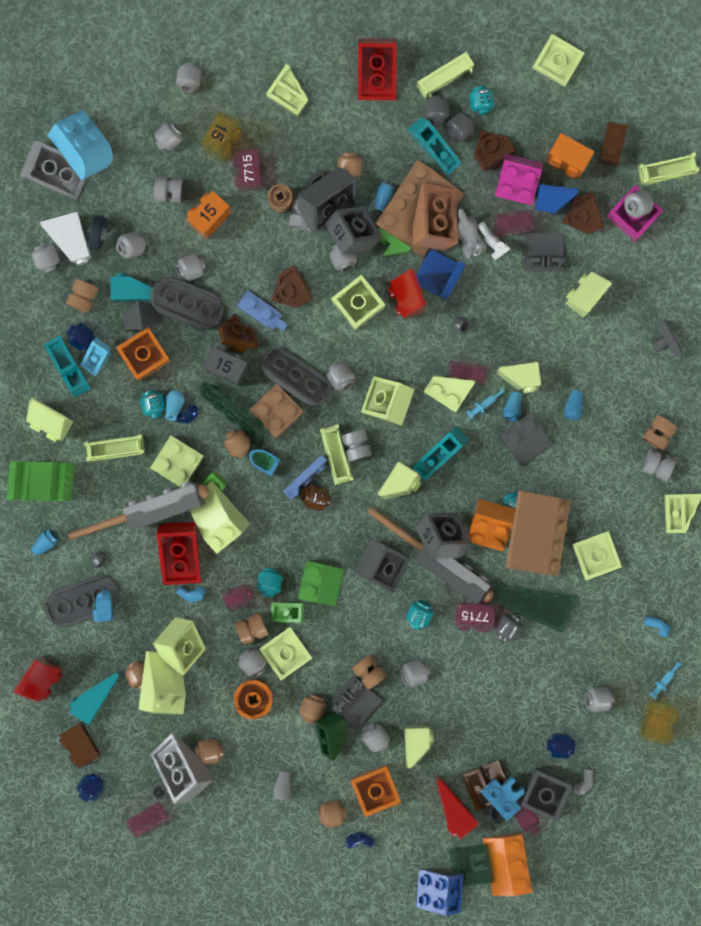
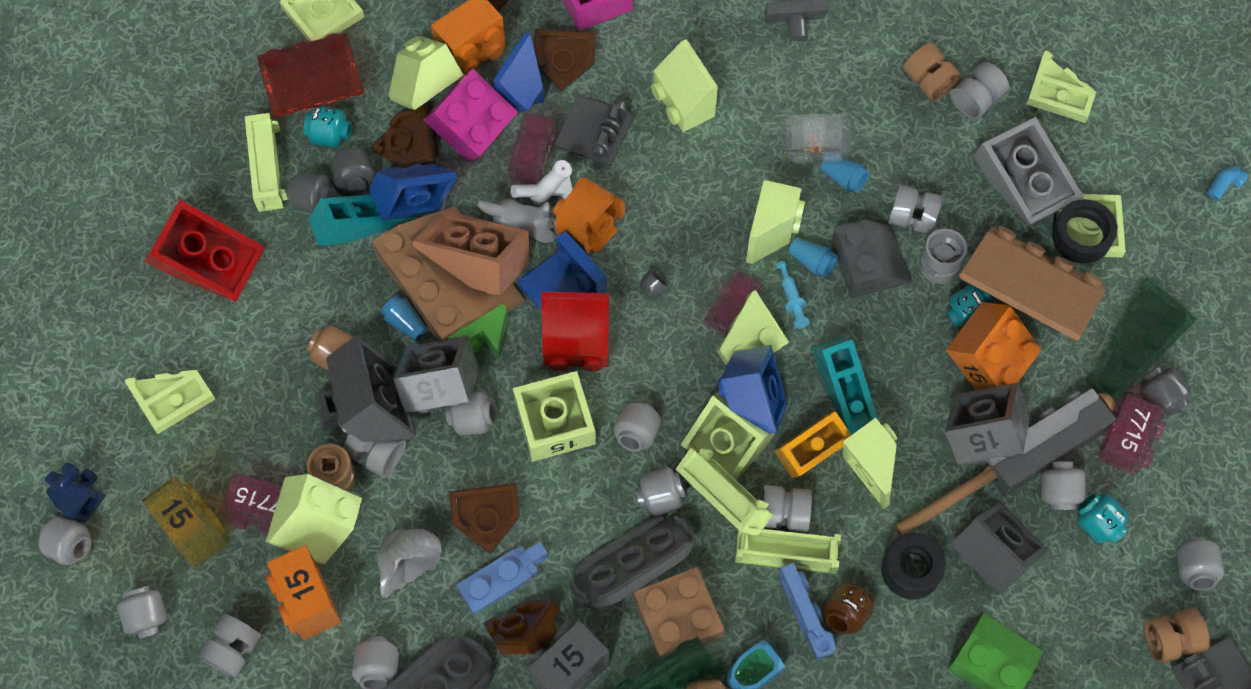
camera: 65 degrees left, 20 degrees down
(214, 69) = (74, 497): none -> dark blue piece
(249, 201) = (313, 516): none -> yellowish green slope
(251, 257) = (405, 557): none -> light grey hair
(350, 409) = (724, 491): none -> yellowish green container
(359, 513) = (901, 583): none -> black tyre
(372, 349) = (637, 426): none -> light grey head
(397, 446) = (812, 444): none -> light orange brick
(415, 404) = (755, 387): none -> blue slope
(428, 588) = (1063, 486): none -> light grey head
(459, 166) = (411, 190): none -> blue slope
(483, 272) = (589, 215): none -> orange brick
(508, 76) = (310, 74): none -> clear red slope
(534, 139) = (422, 72): none -> yellowish green slope
(540, 478) = (942, 256): none -> light grey wheel
(564, 453) = (904, 207): none -> light grey wheel
(584, 380) = (815, 137): none -> clear slope
(586, 567) = (1095, 212): none -> black tyre
(612, 510) = (1027, 172): none -> light grey slope

